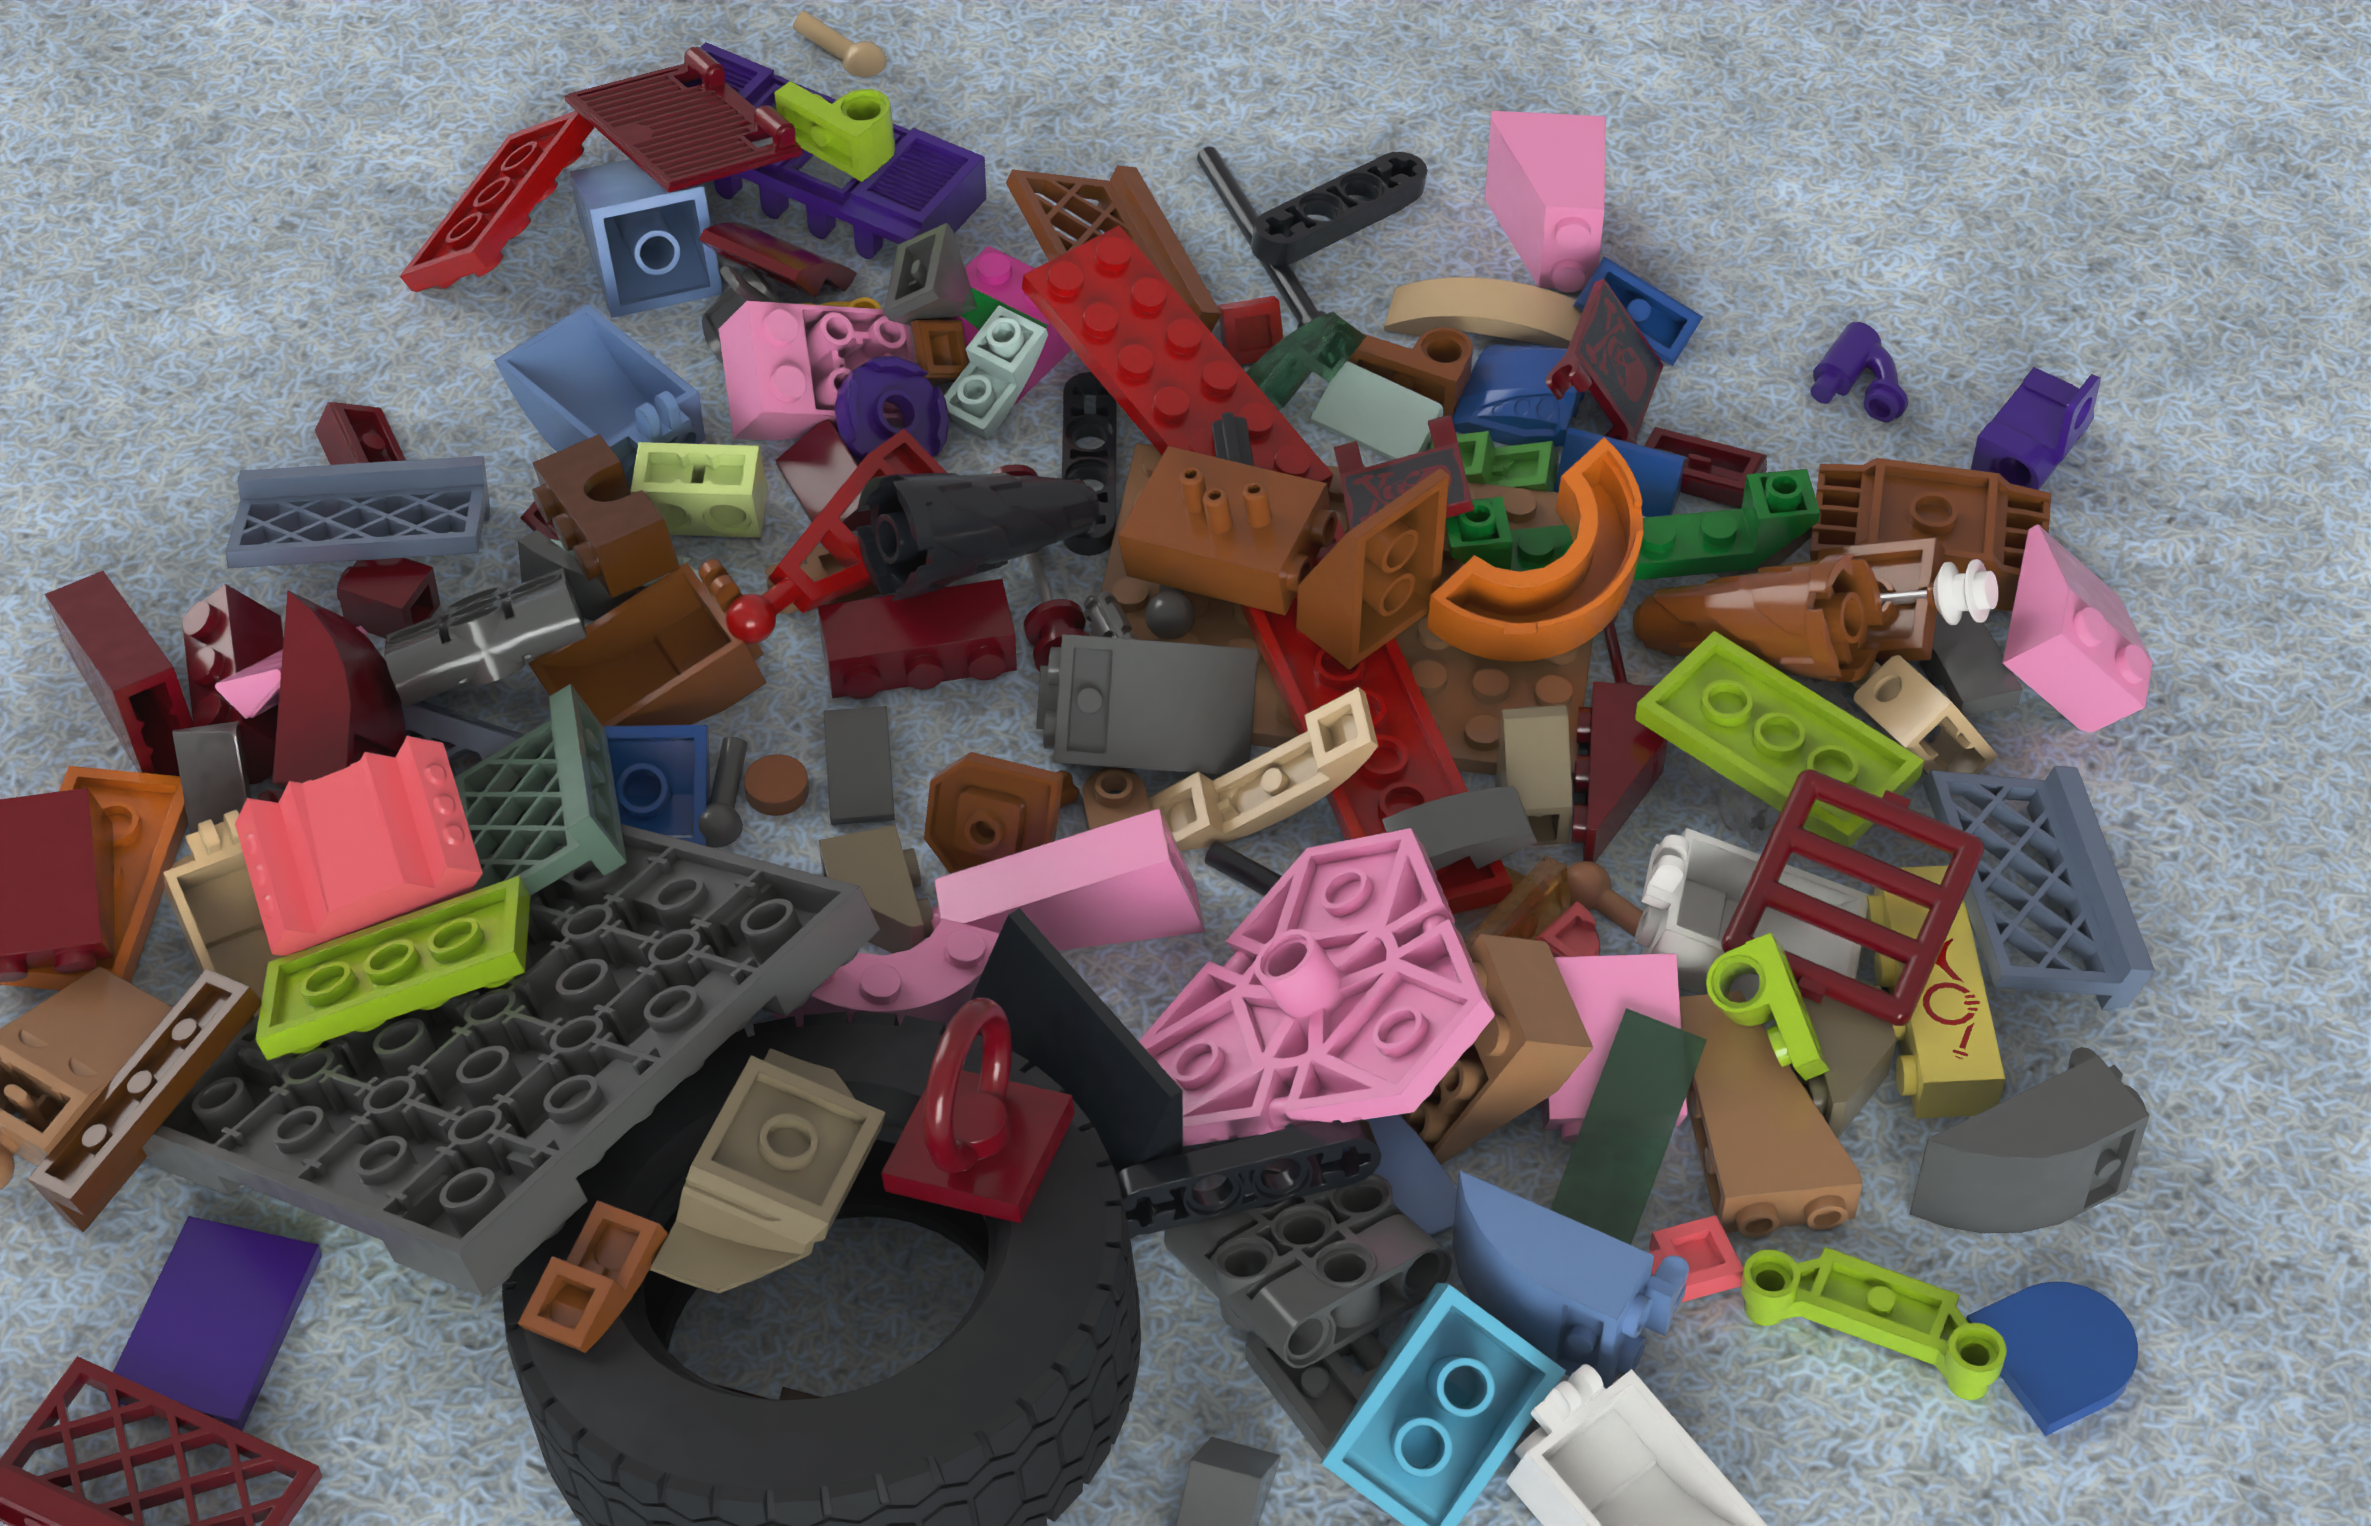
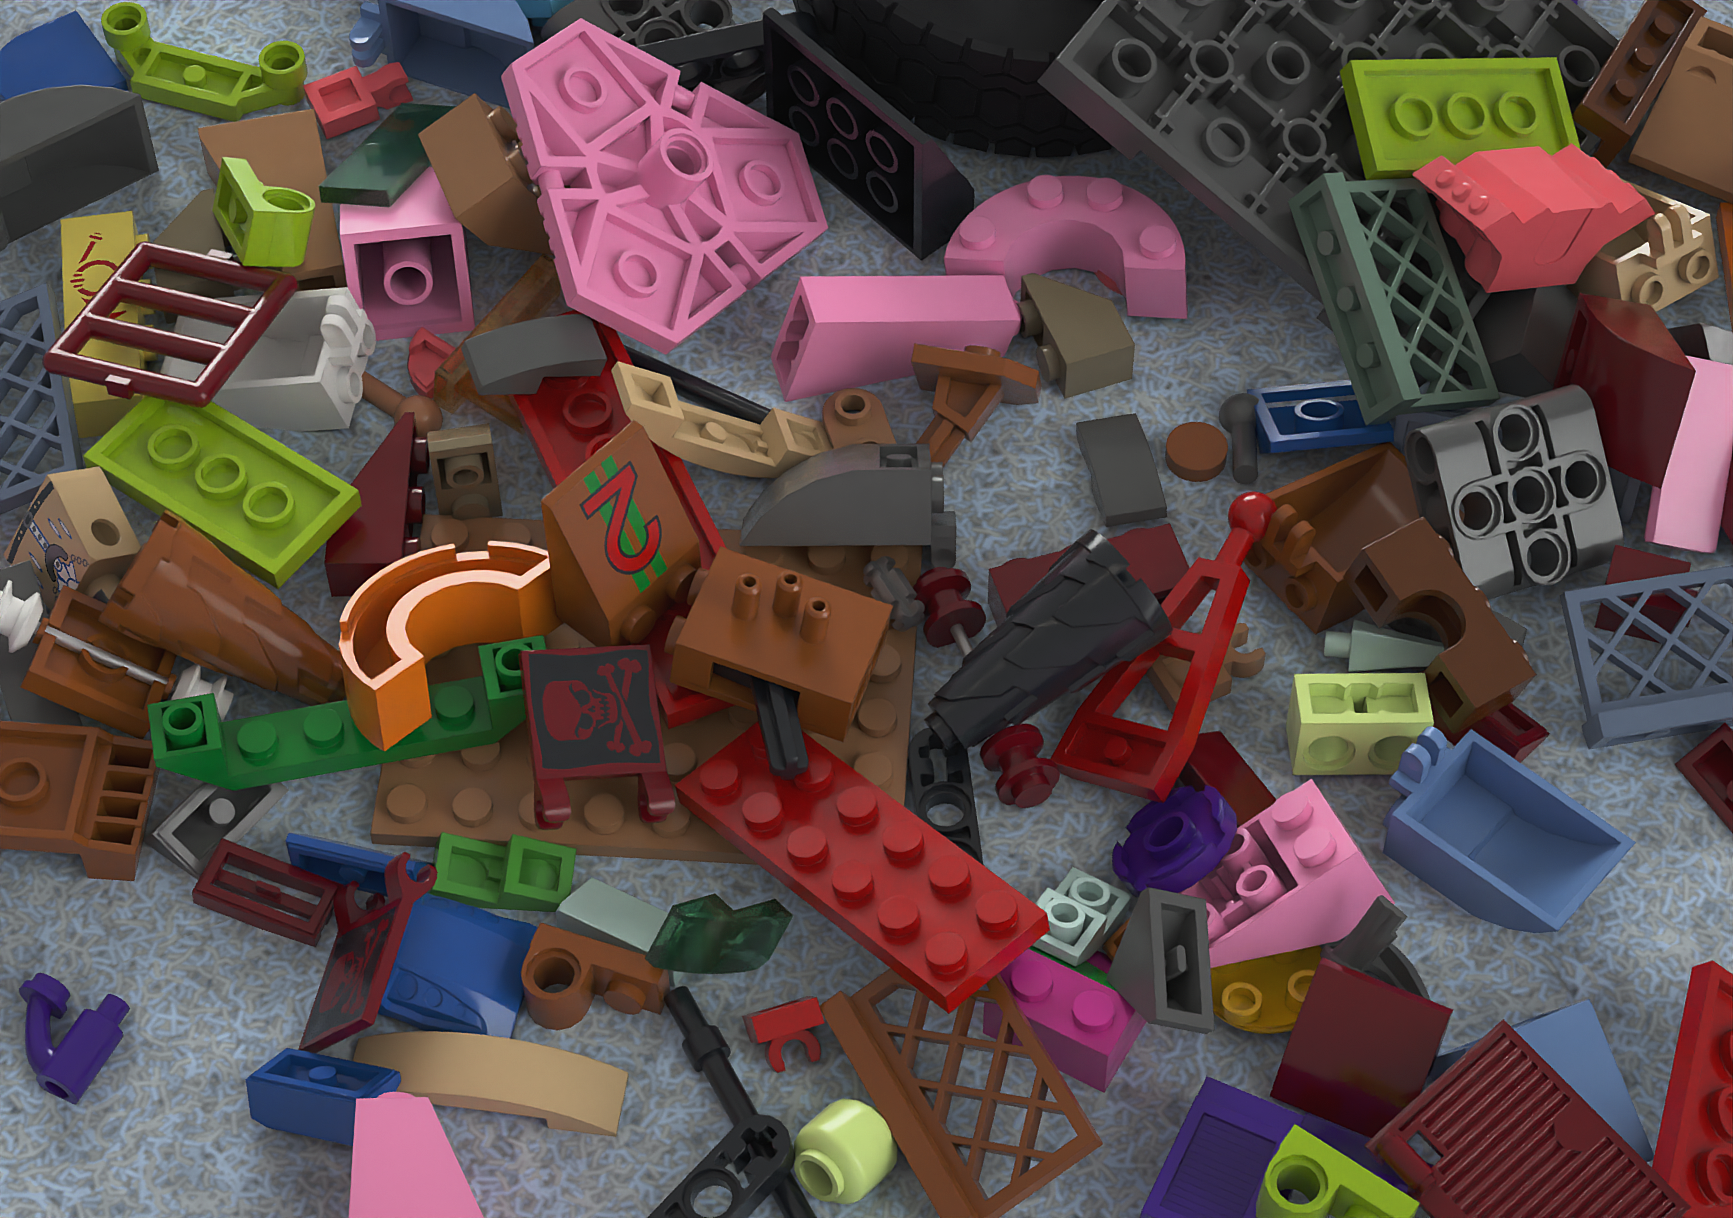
camera: 175 degrees right, 5 degrees up
(1215, 238) = (844, 1152): none -> yellowish green head

